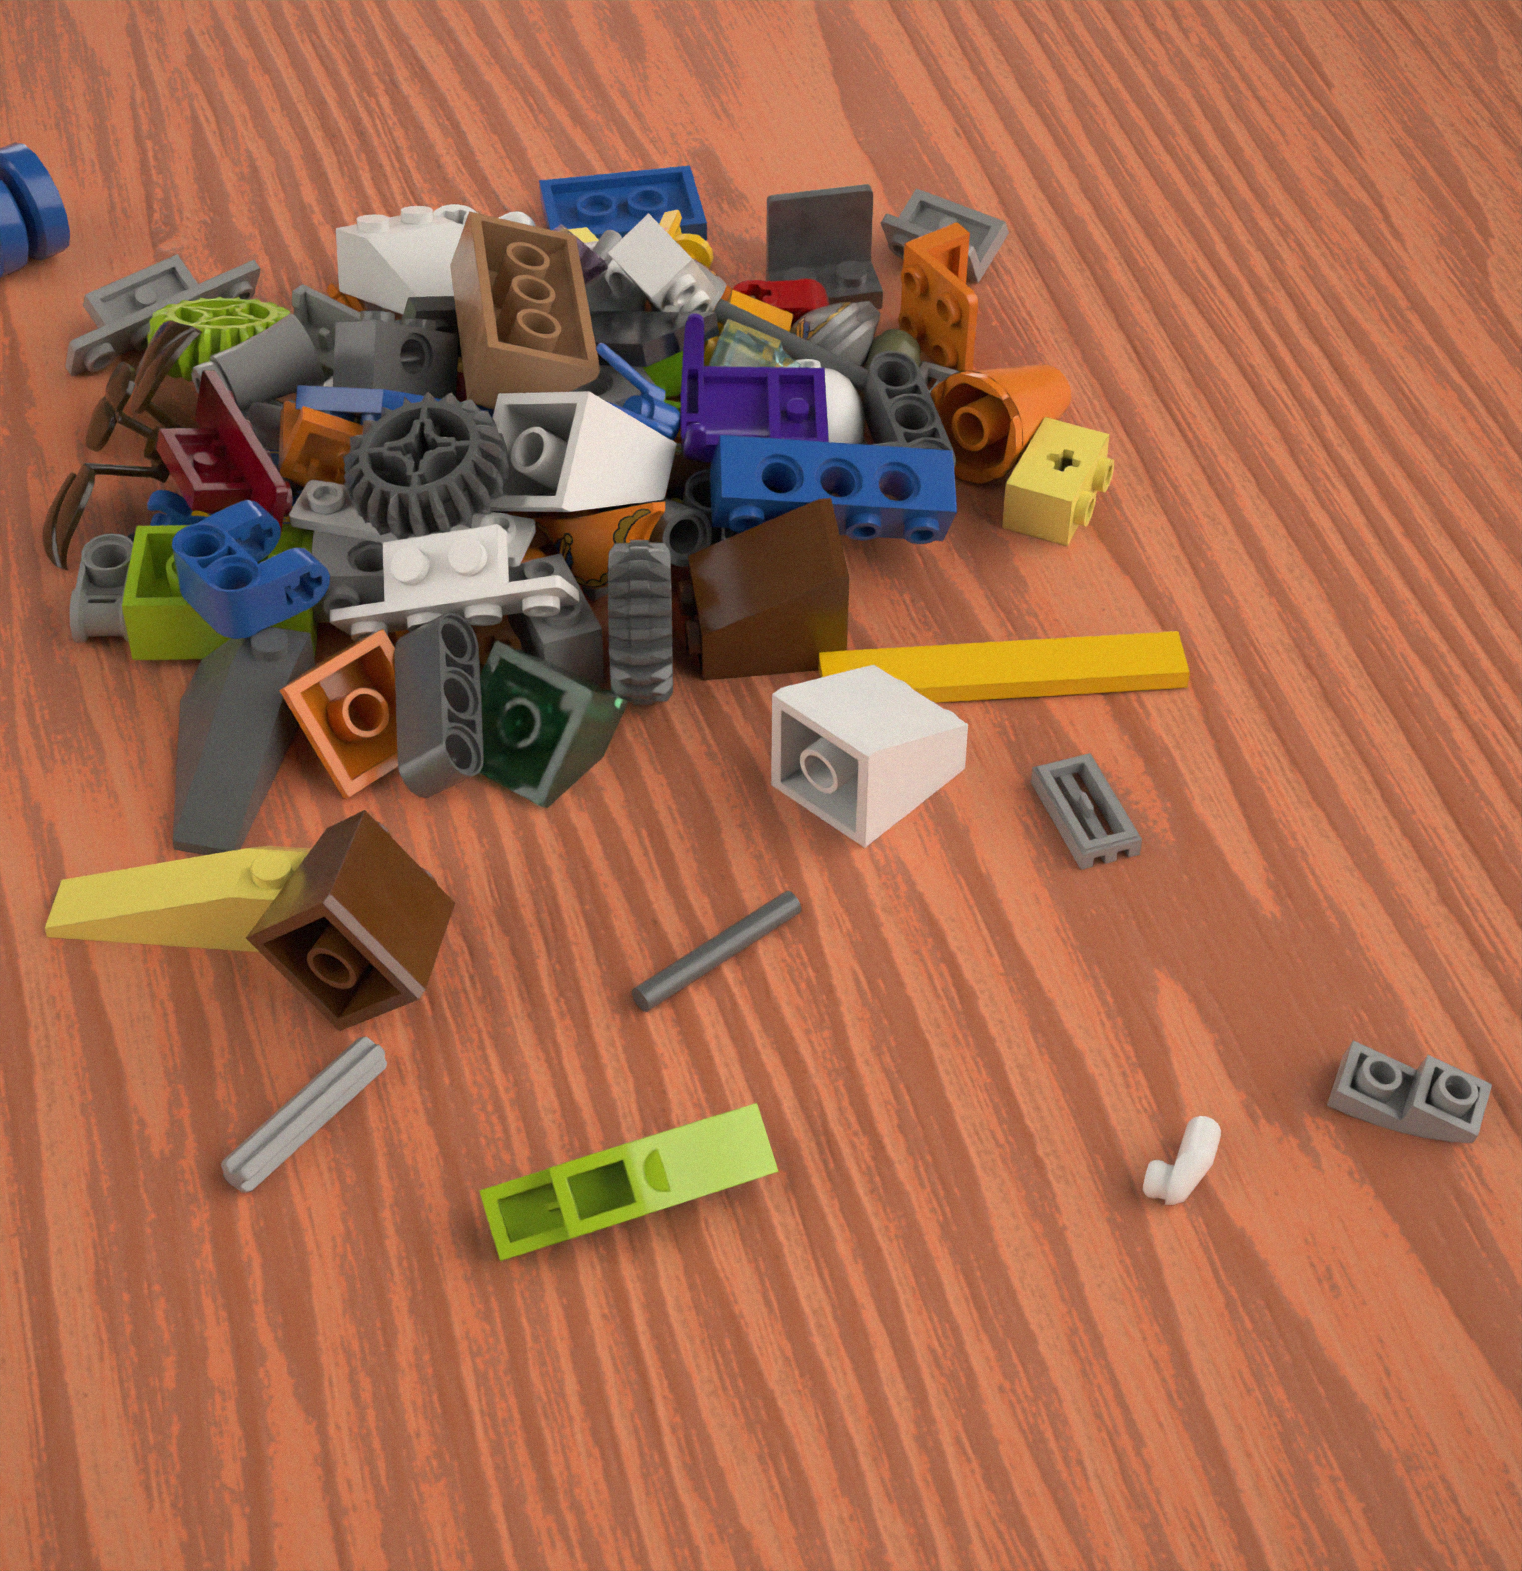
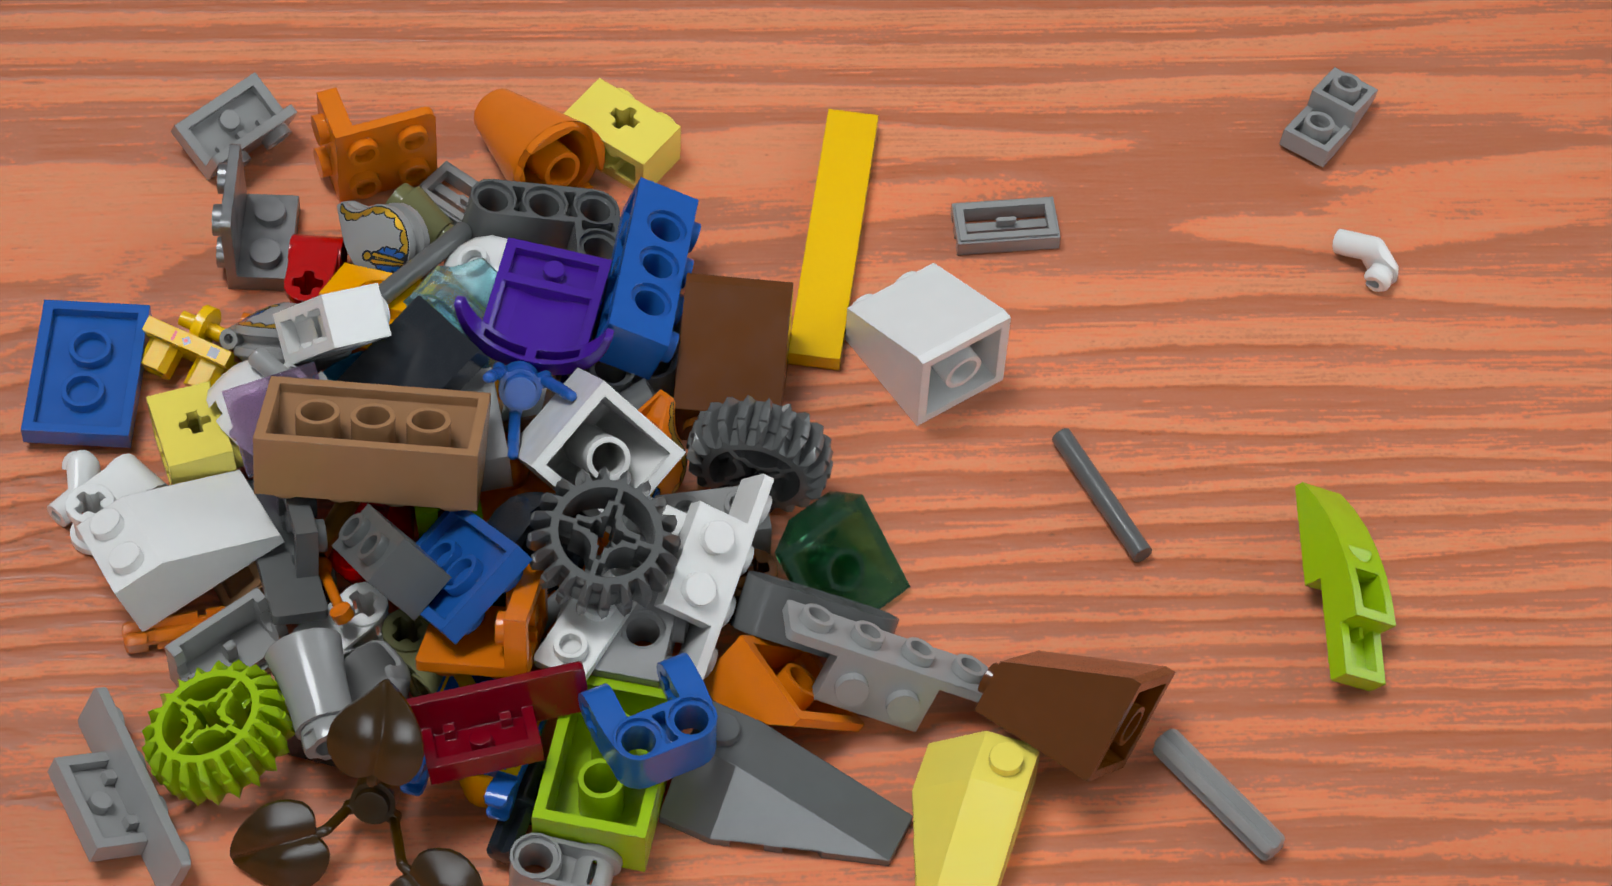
camera: 80 degrees left, 10 degrees up
(388, 747) = (877, 670): none -> light grey bracket

